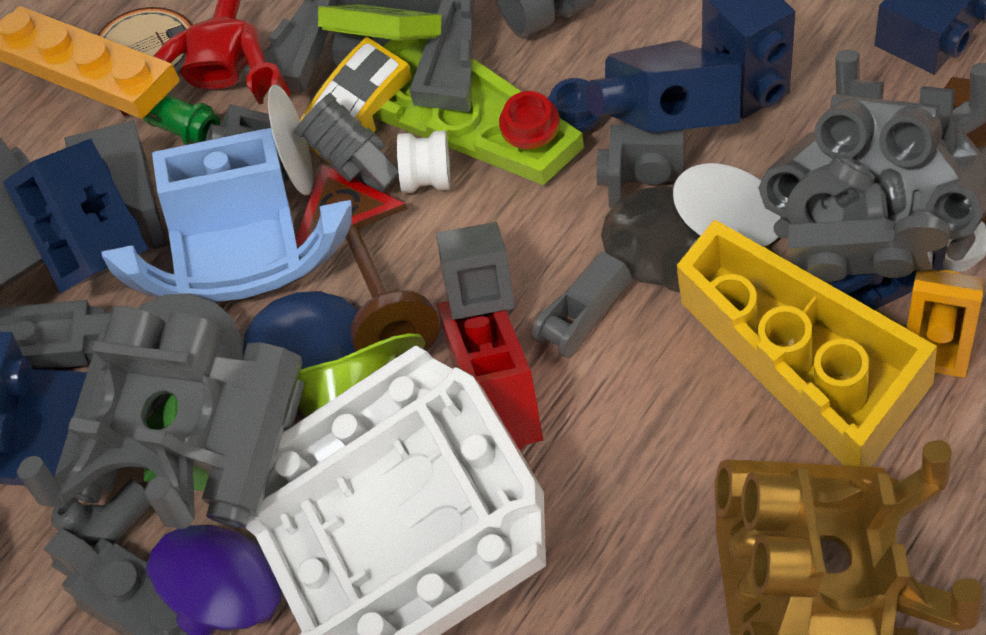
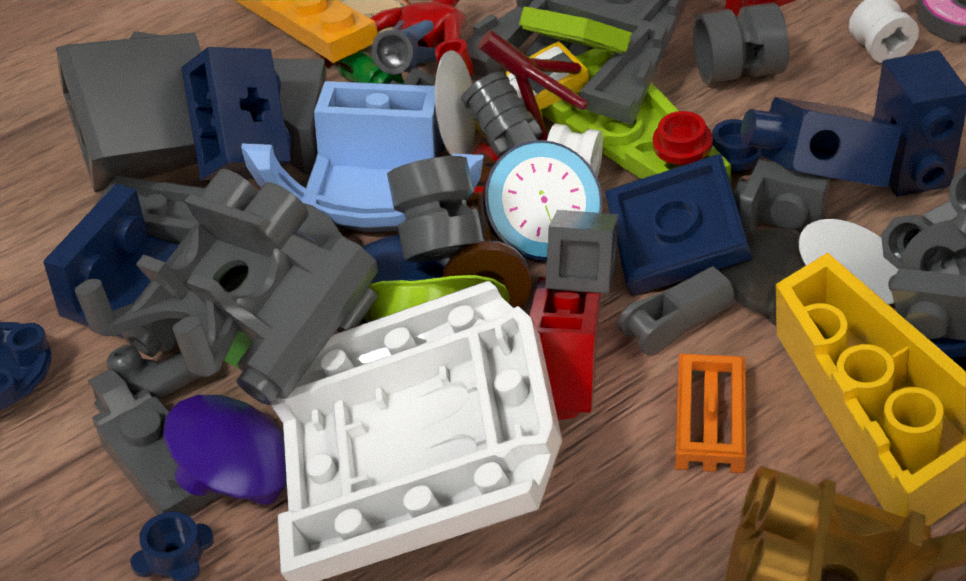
camera: 15 degrees right, 10 degrees down
(208, 90) = (398, 49): none -> flat silver piece
(326, 274) = (435, 208): none -> dark grey wheel
(352, 85) = (524, 68): none -> dark red plant
(401, 218) = (529, 188): none -> piece
(553, 213) = (677, 225): none -> dark blue plate
(660, 444) = (709, 450): none -> orange tile

